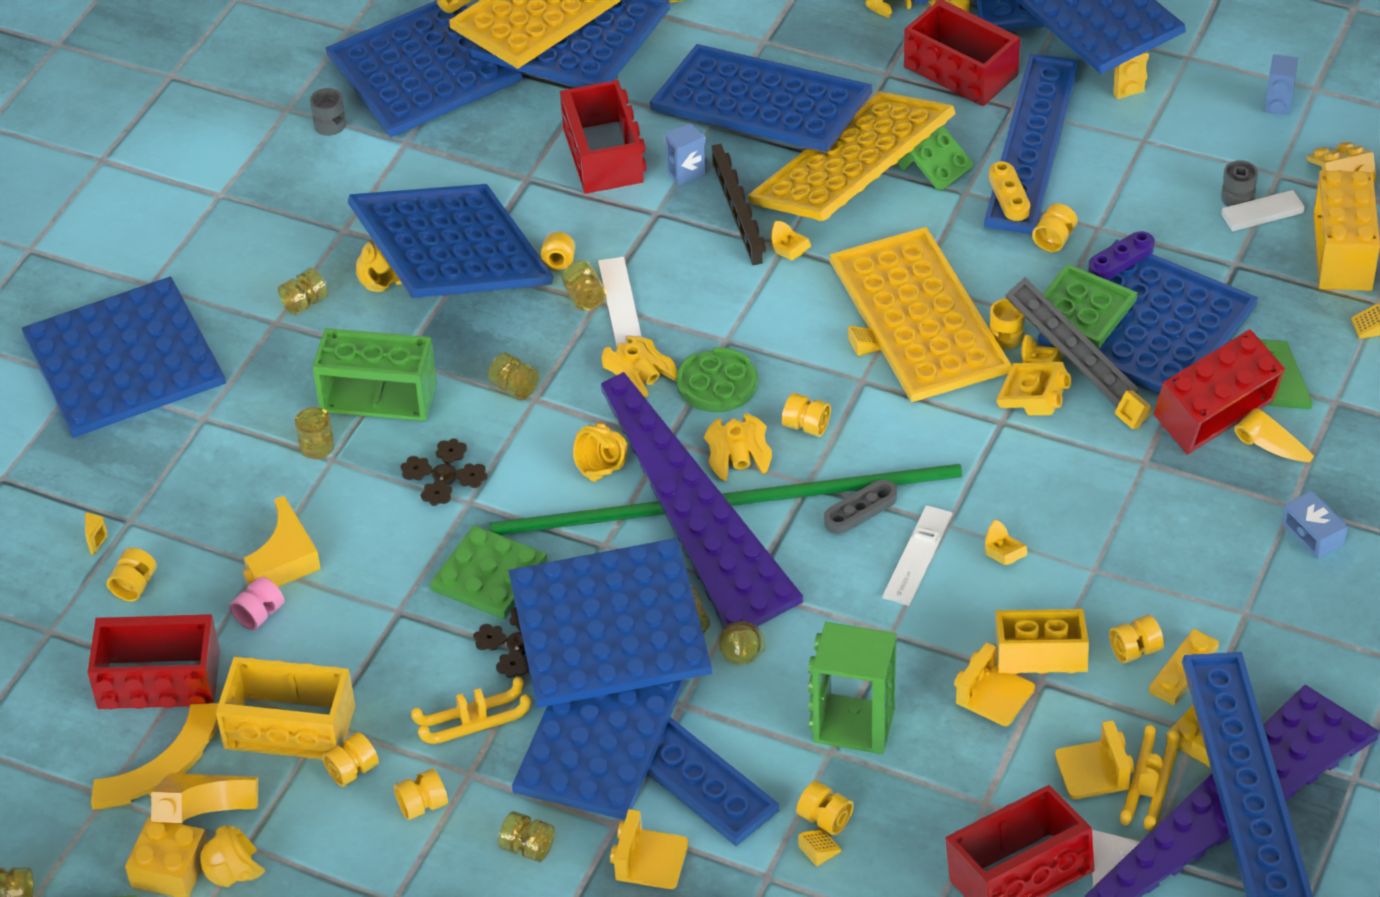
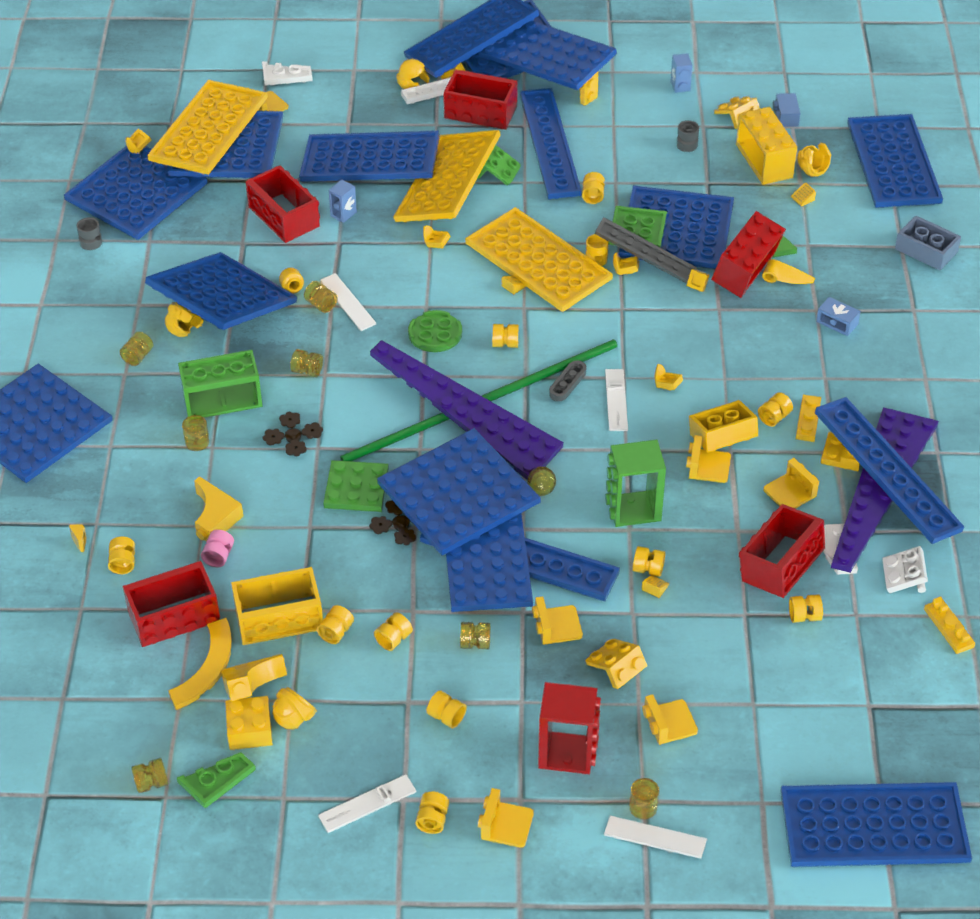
camera: 25 degrees left, 0 degrees up
(472, 714) = (397, 573): yellow piece -> none
(599, 451) = (389, 392): yellow helmet -> none
(639, 361) = (379, 330): yellow piece -> none
(736, 200) = (389, 223): dark brown plate -> none
(737, 442) = (473, 364): yellow piece -> none
(887, 19) = (424, 91): none -> white plate
(1009, 191) = (554, 173): yellow plate -> none
(1034, 387) = (633, 282): yellow plate -> none
(1122, 255) = (643, 192): dark purple plate -> none
(1150, 778) = (827, 487): yellow piece -> none
(1262, 210) = (706, 148): white tile -> none

